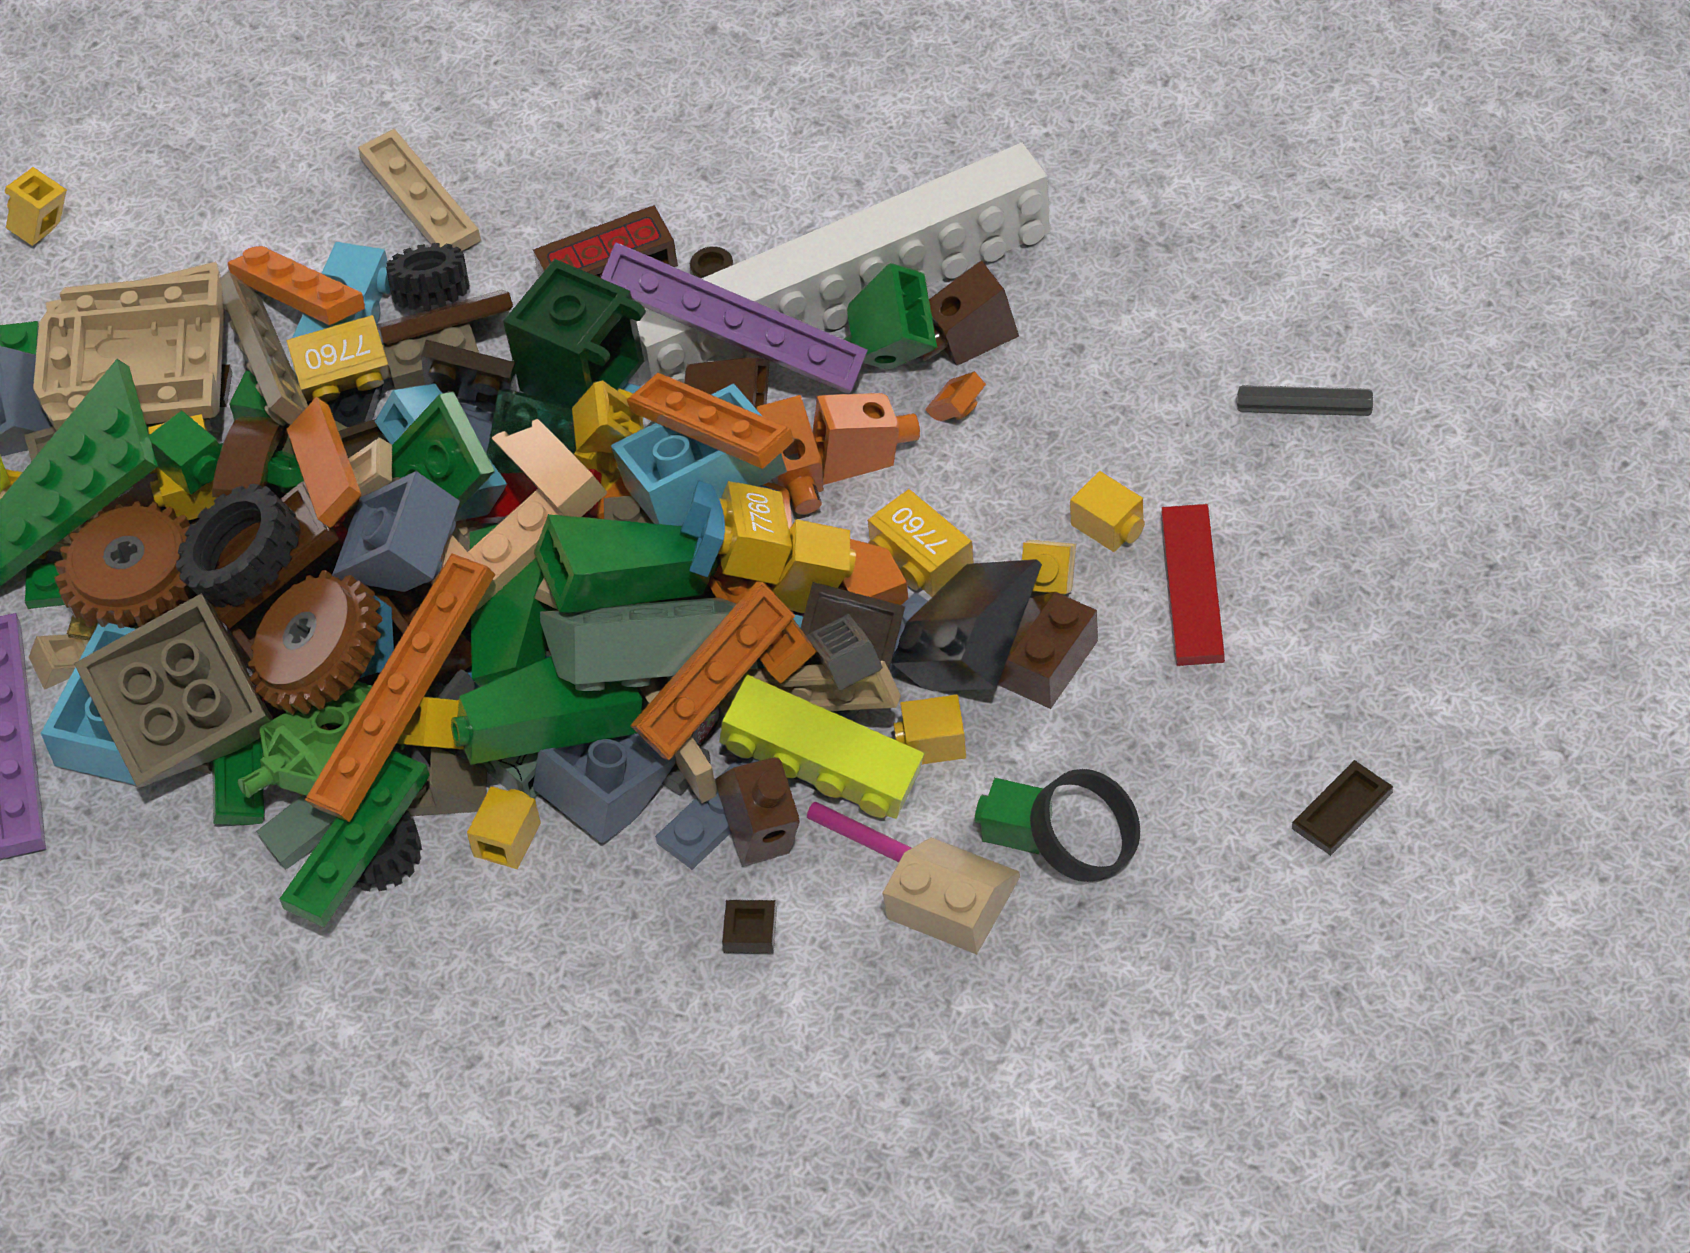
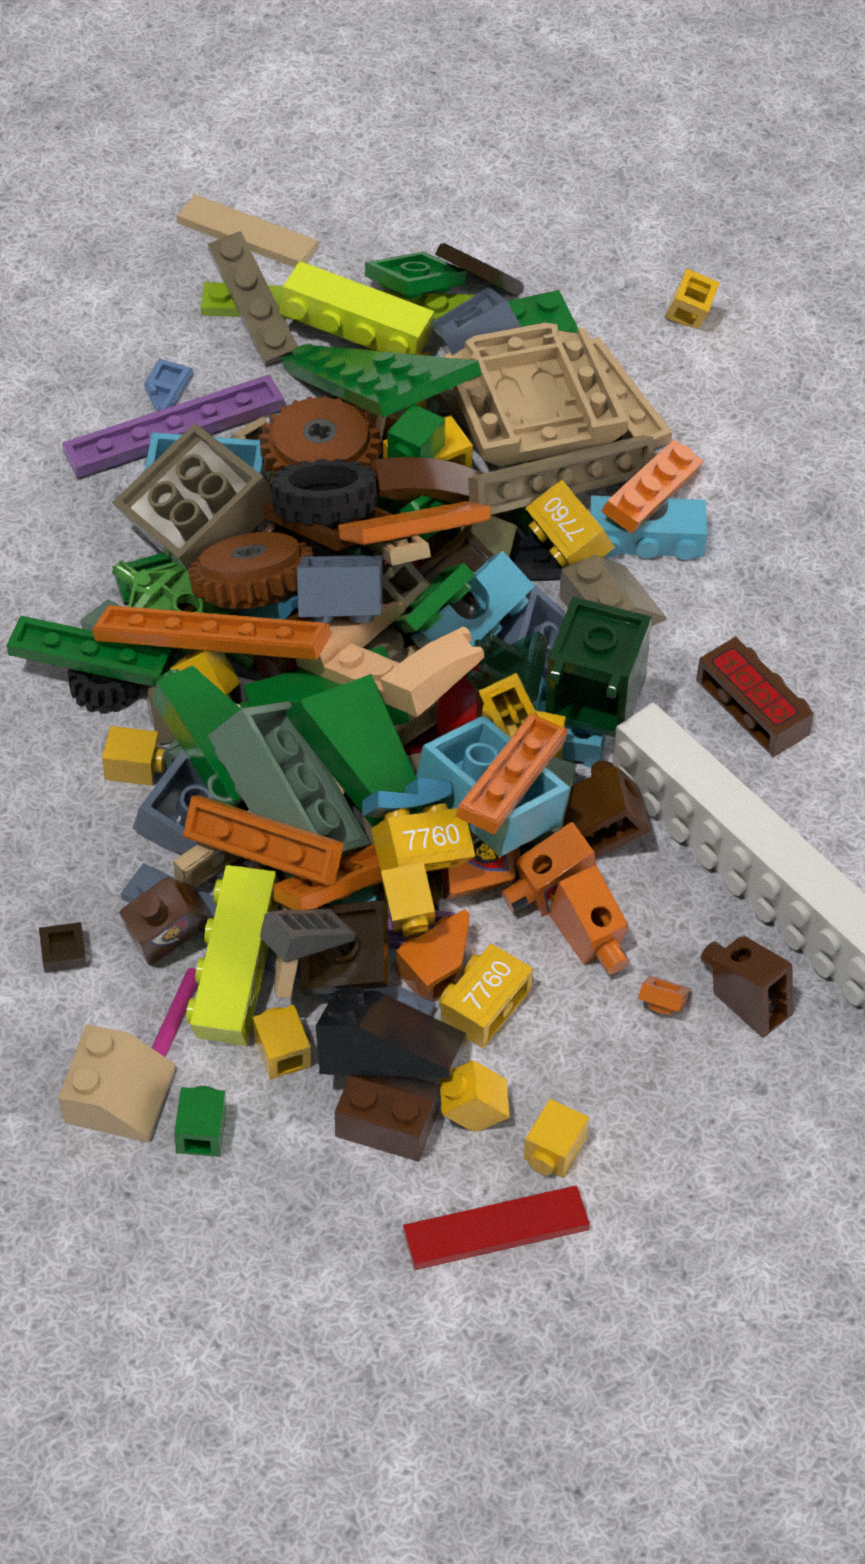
camera: 70 degrees right, 0 degrees up
(418, 191) = (792, 551): tan plate -> none
(427, 276) = (693, 574): black tyre -> none
(445, 316) = (647, 593): reddish brown tile -> none
(467, 373) = (557, 592): dark brown plate -> none
(709, 261) = (776, 780): dark brown tile -> none
(735, 319) = (659, 780): medium lavender plate -> none
(892, 318) = (721, 916): green torso -> none
(1116, 799) = (143, 1173): black tyre -> none
(1305, 400) = (742, 1293): dark grey axle -> none
(1342, 807) = (262, 1392): dark brown tile -> none

